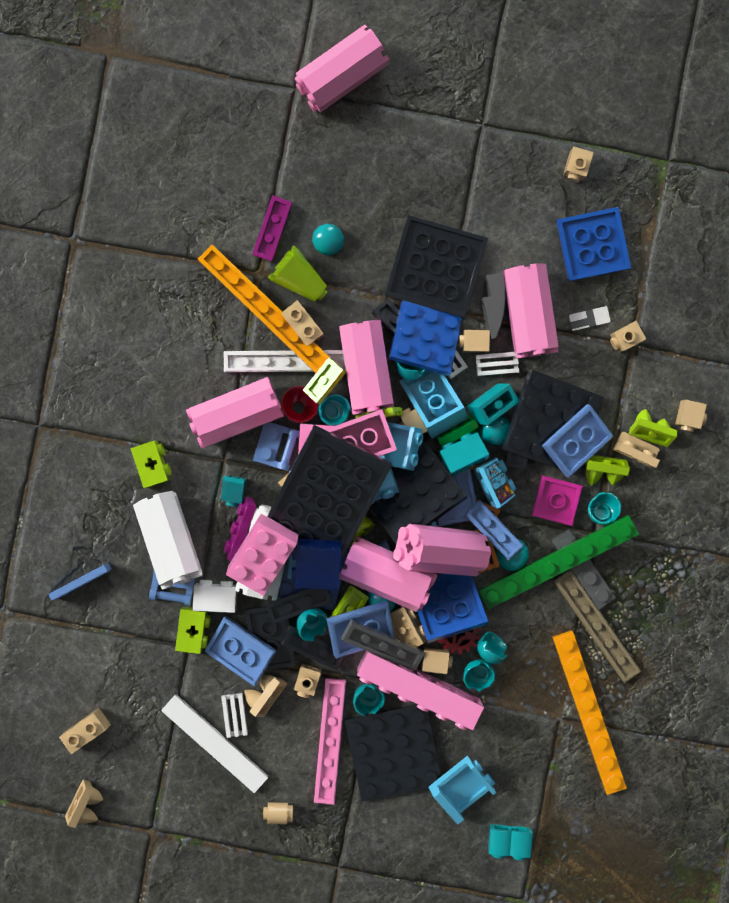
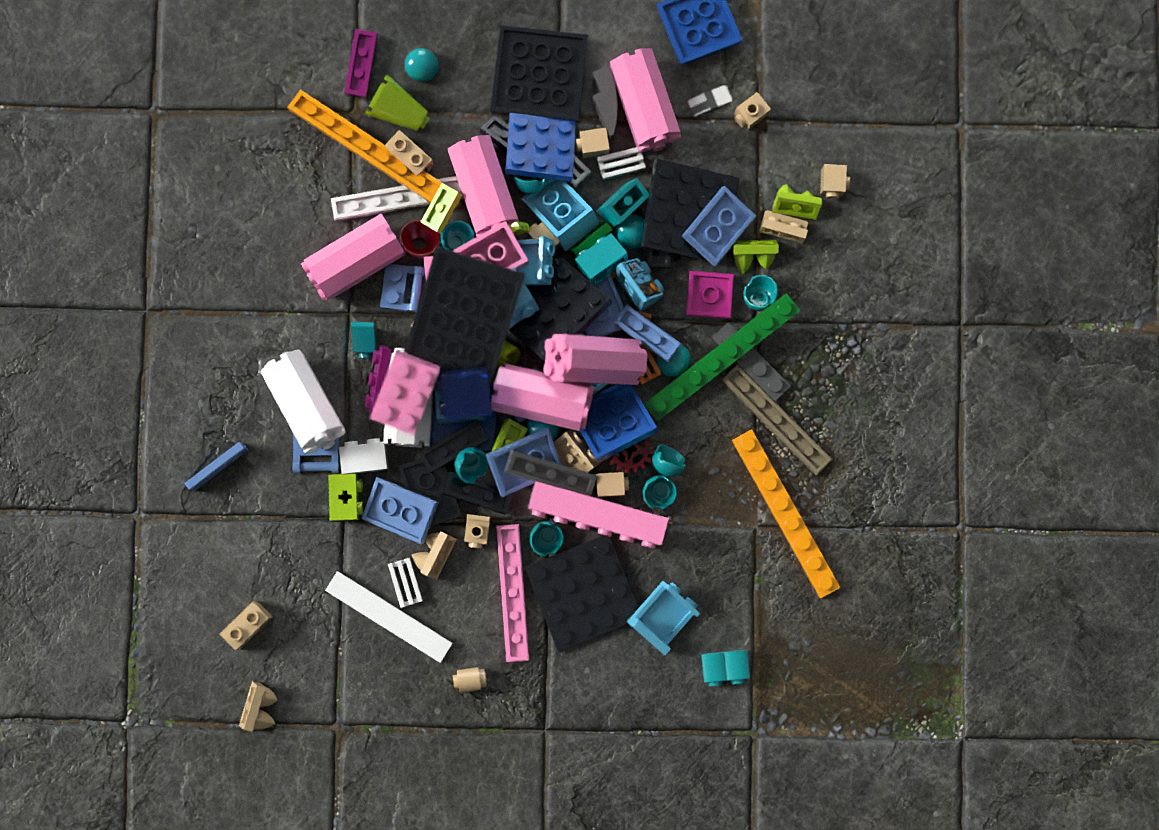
camera: 15 degrees left, 5 degrees down
(142, 456) = (263, 319): lime brick -> none

